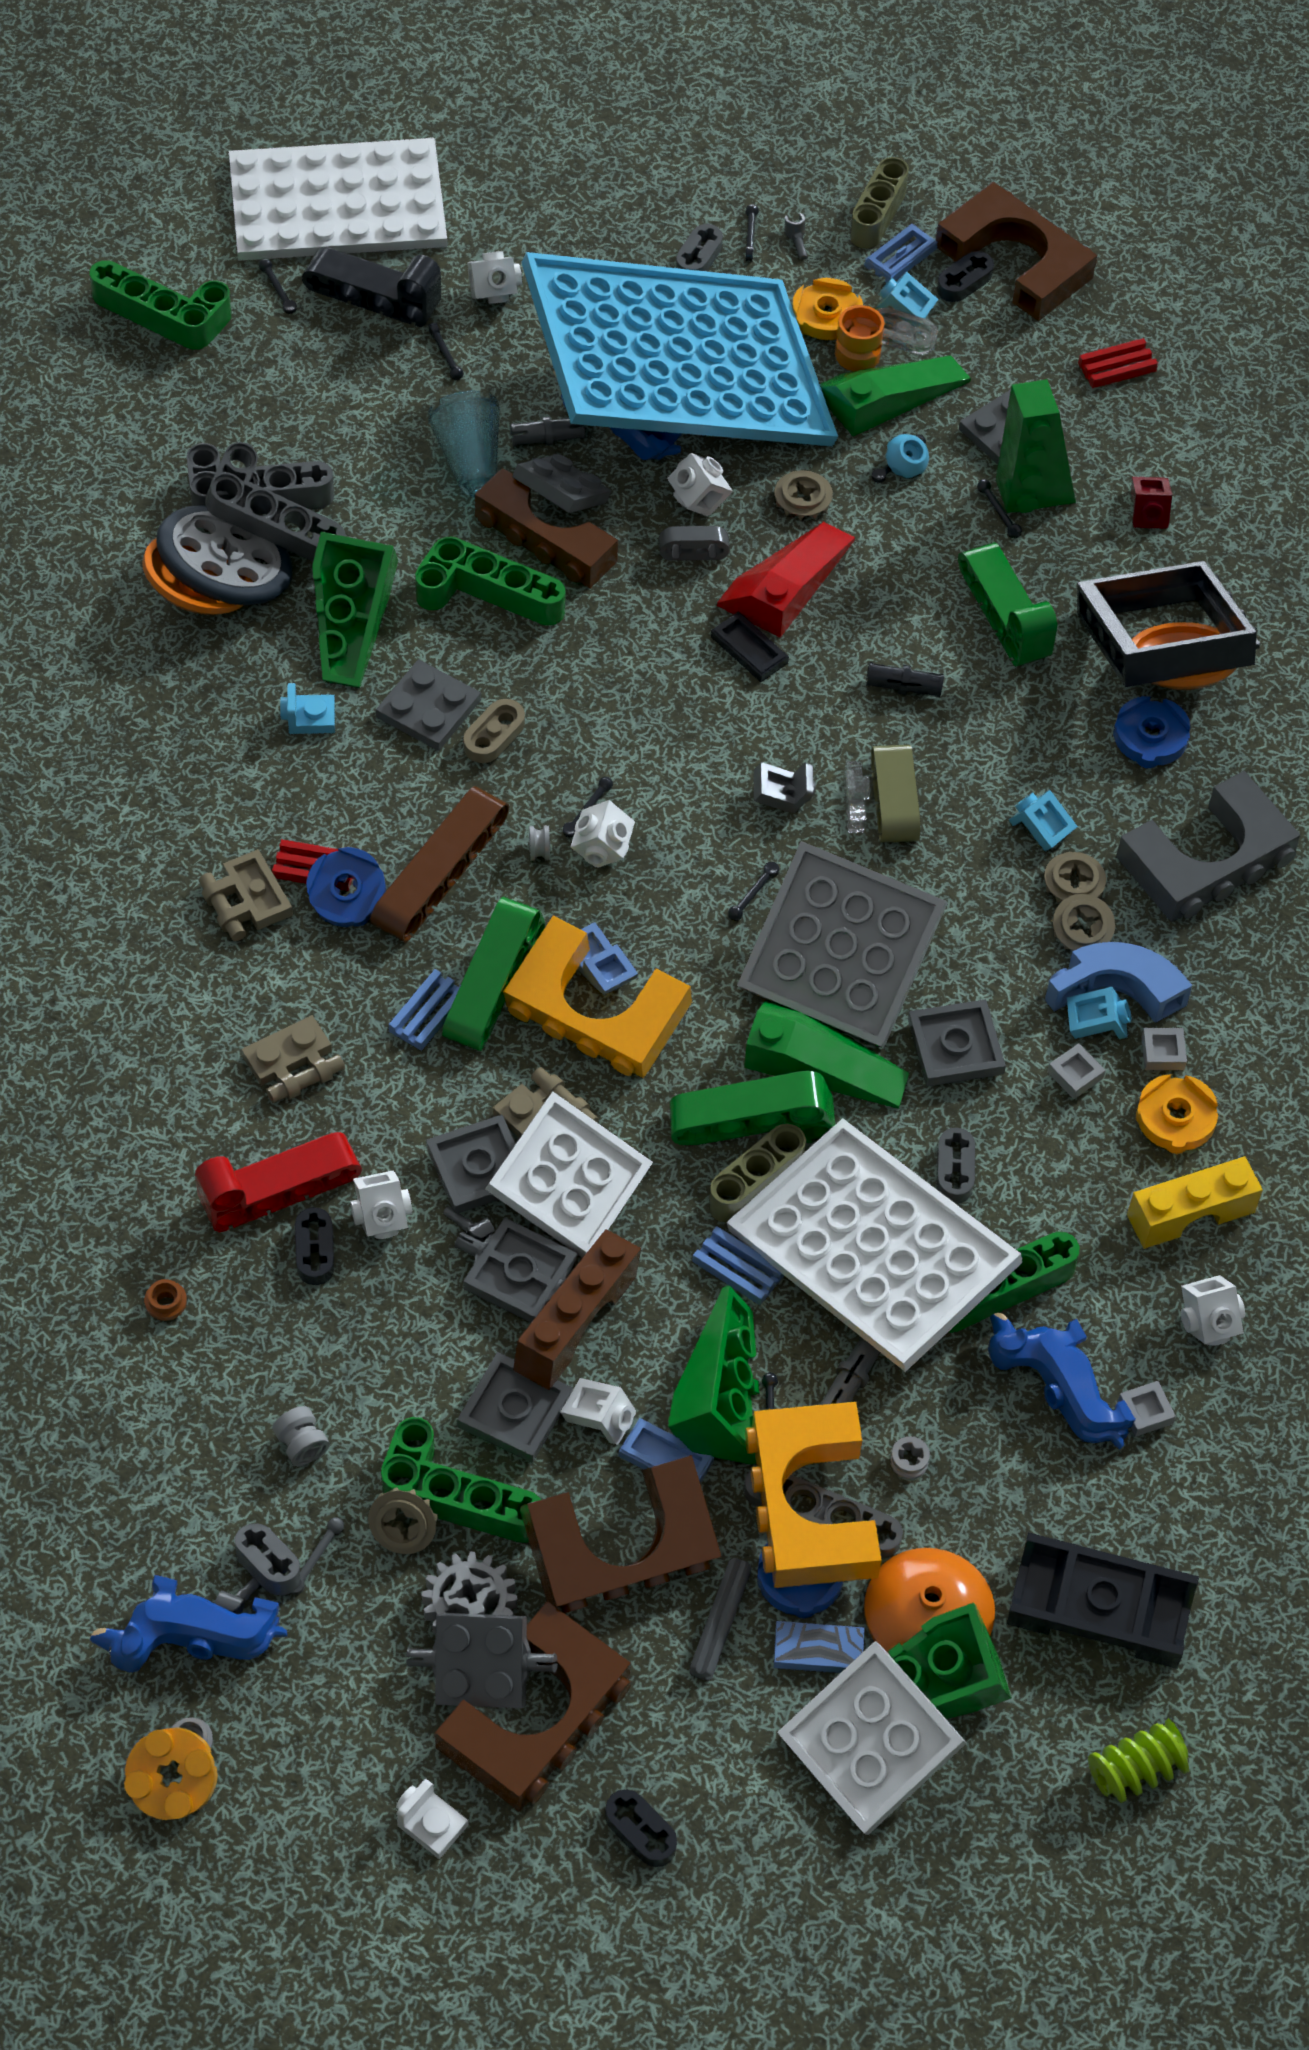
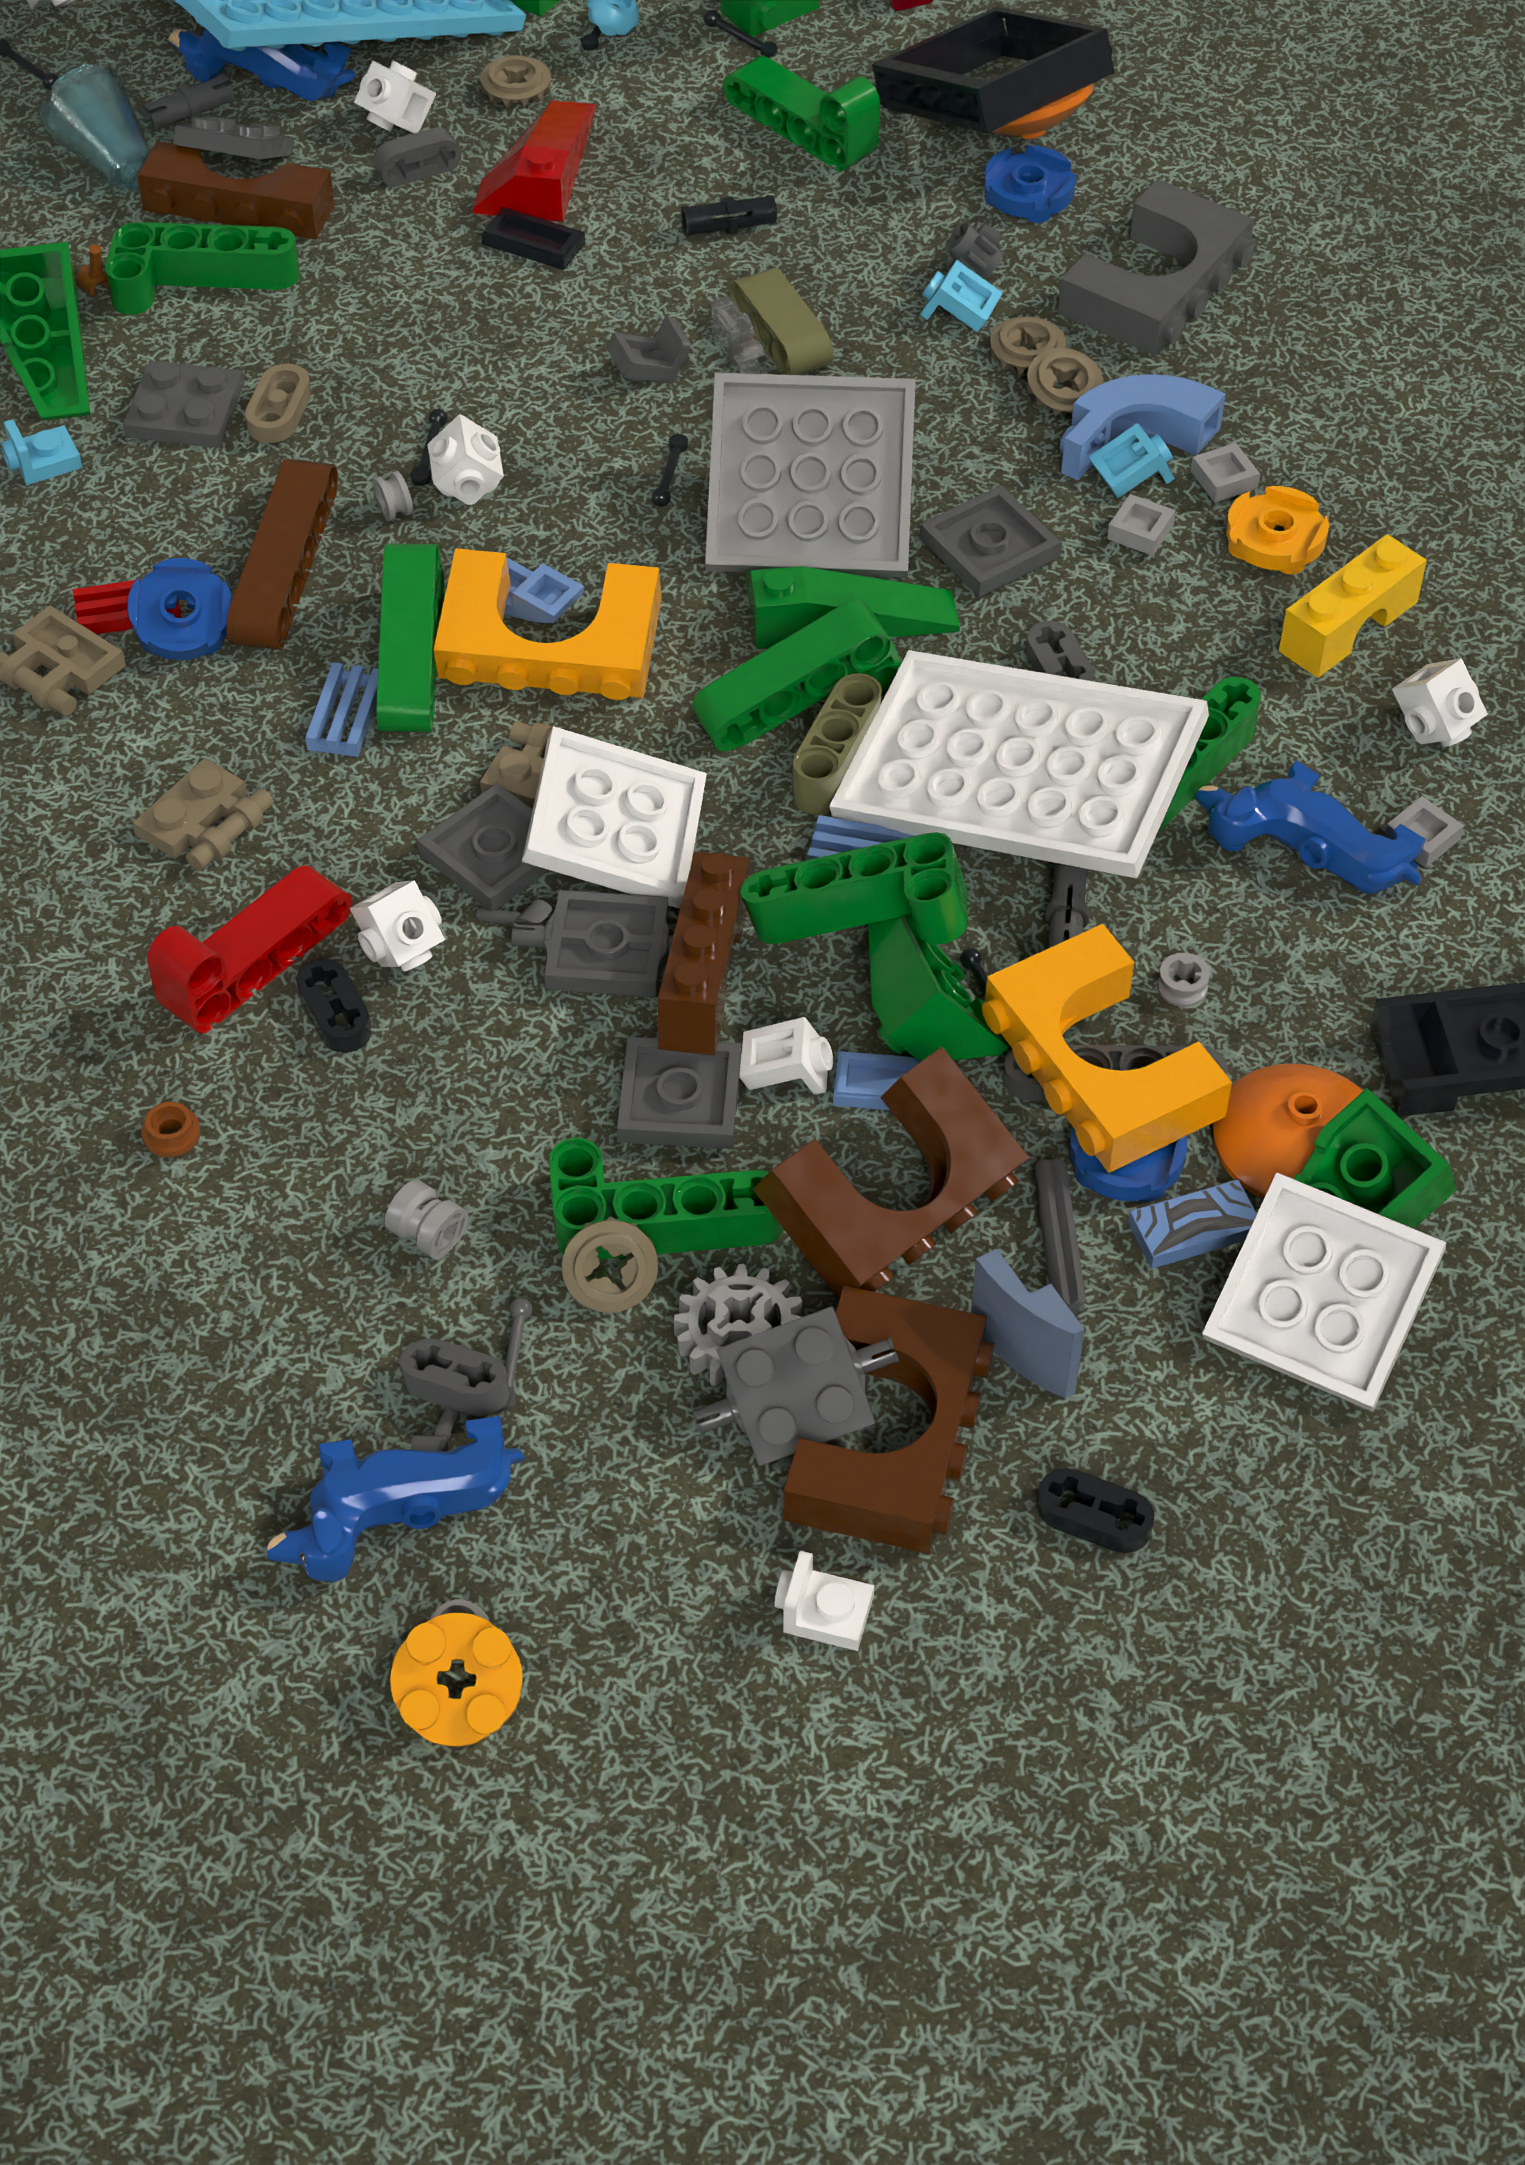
camera: 20 degrees left, 5 degrees down
(408, 567) = (92, 273): none -> dark orange hand
(653, 1682) = (1029, 1330): none -> sand blue slope
(732, 1311) = (862, 888): none -> green beam
(1072, 782) = (975, 248): none -> dark grey gear

